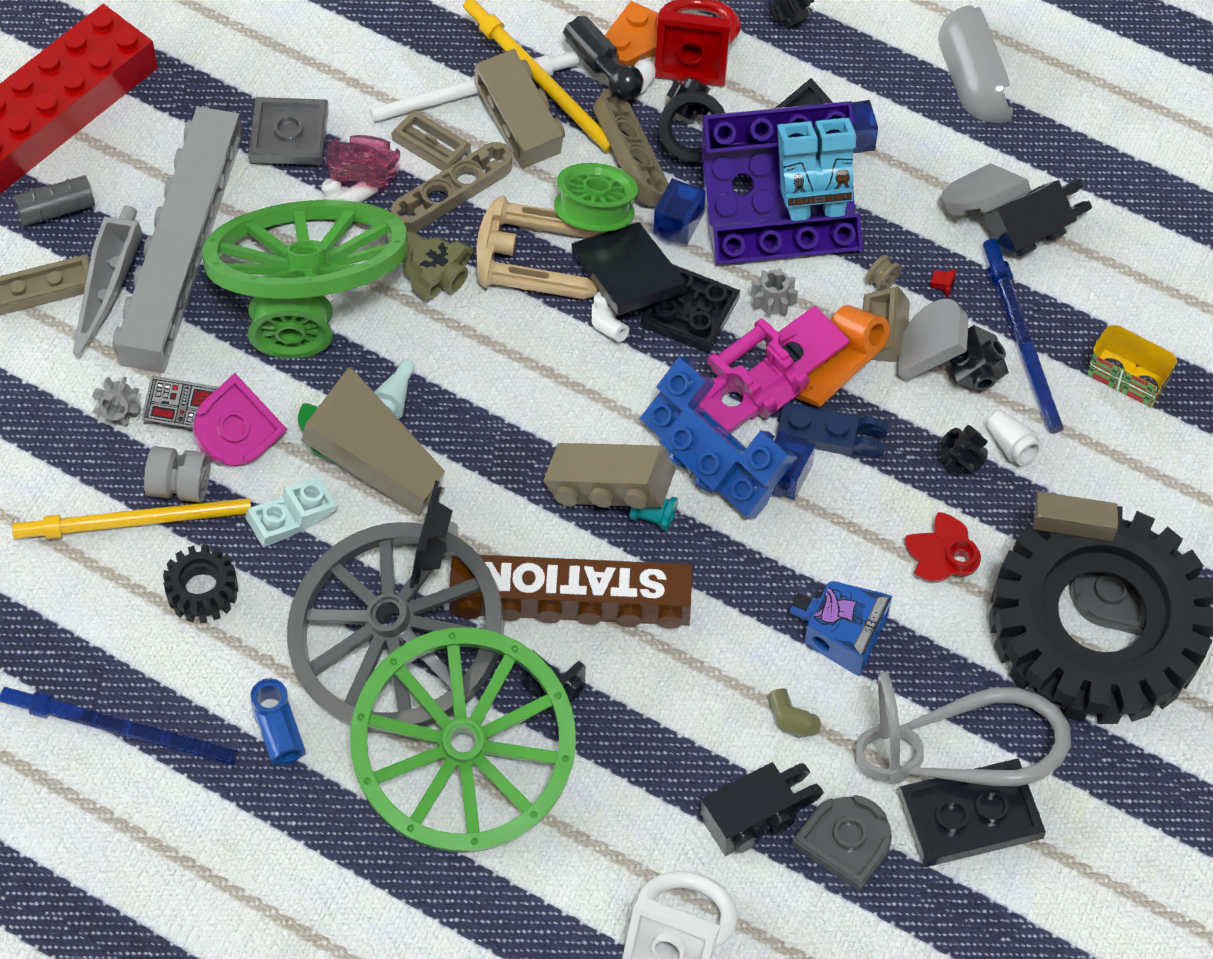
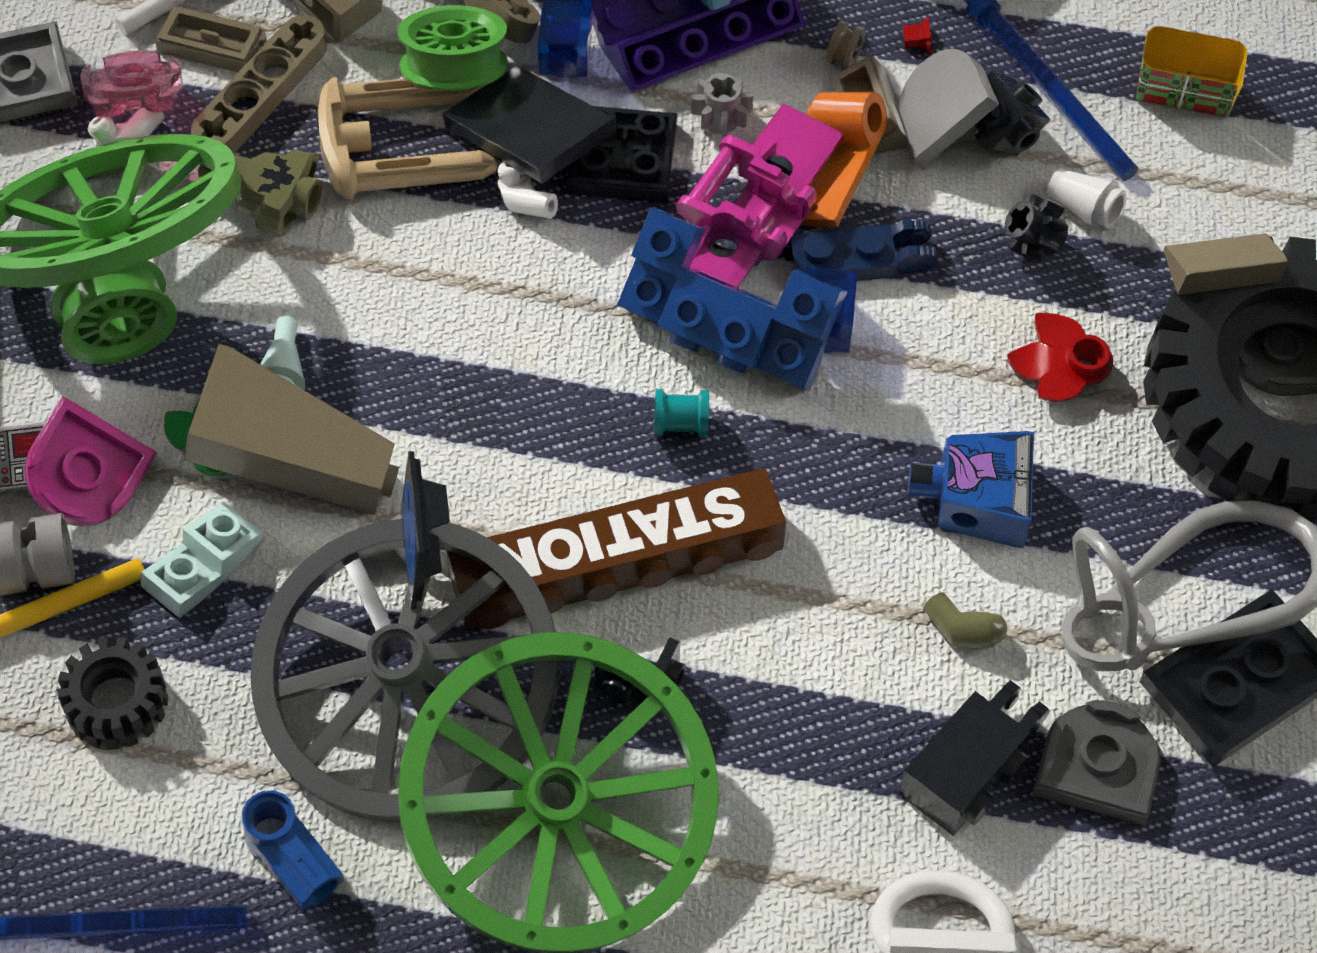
camera: 20 degrees left, 0 degrees up
(609, 475) = (613, 385): dark tan brick -> none

